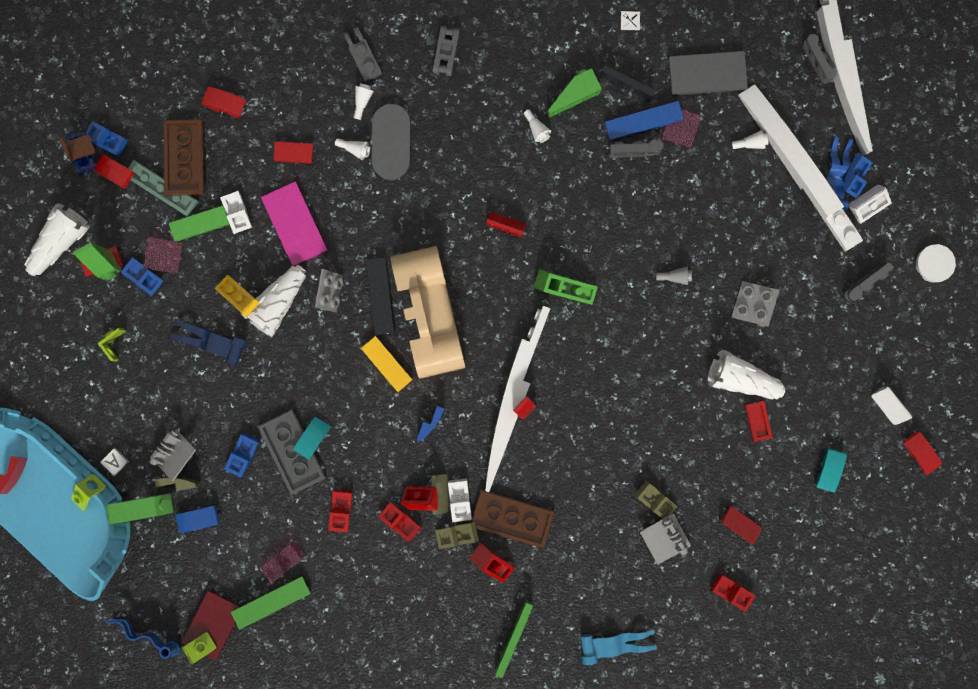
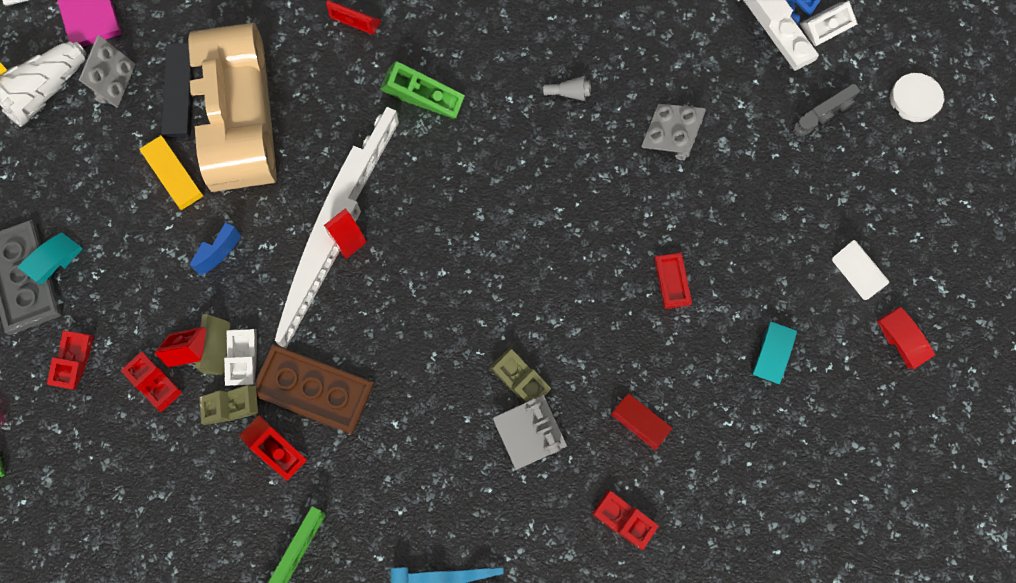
camera: 10 degrees right, 15 degrees down
(740, 376) = (651, 215): white cone -> none

